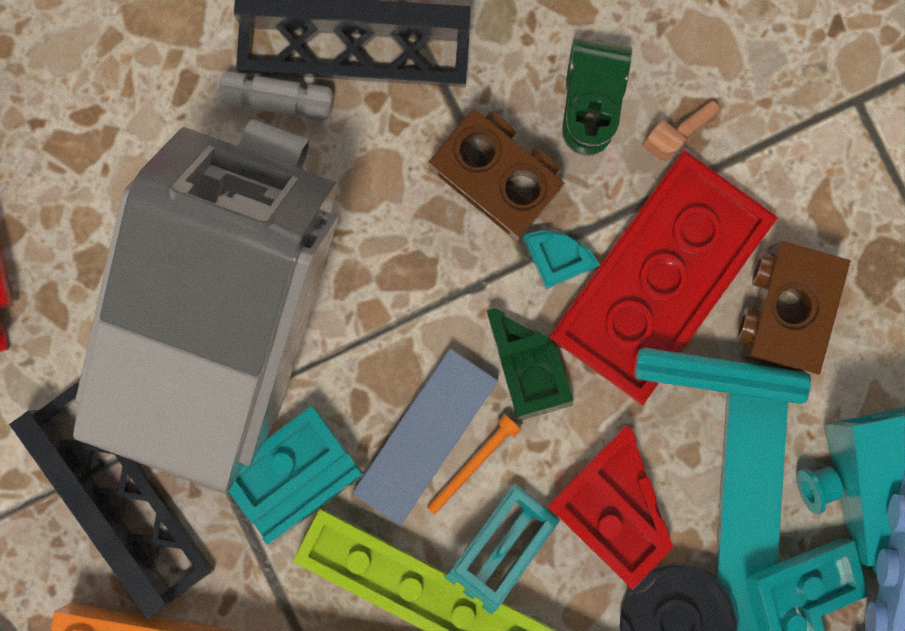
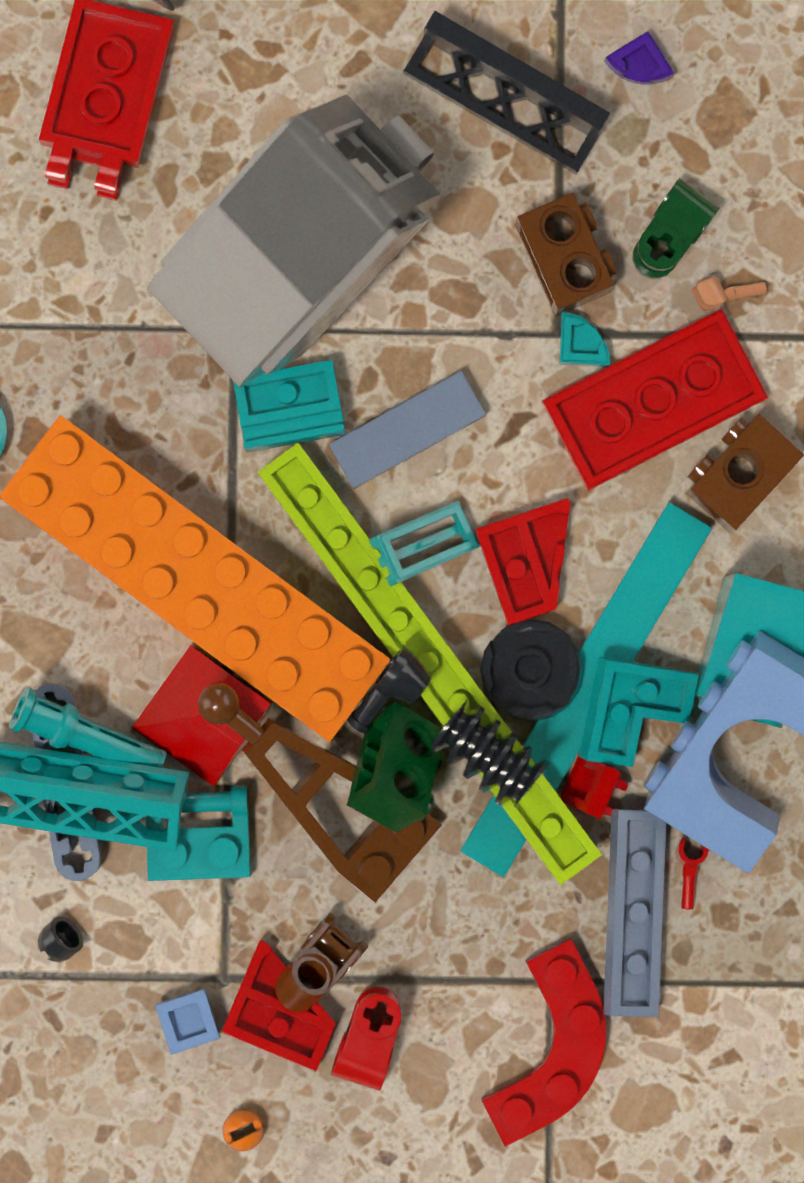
camera: 20 degrees right, 0 degrees up
(98, 517) = (123, 358): black fence -> none
(275, 95) = (424, 106): light grey axle -> none
(507, 427) = (475, 455): orange piece -> none
(529, 367) = (515, 418): dark green slope -> none
(722, 375) = (661, 496): teal axle -> none
(819, 488) = (693, 623): teal piece -> none

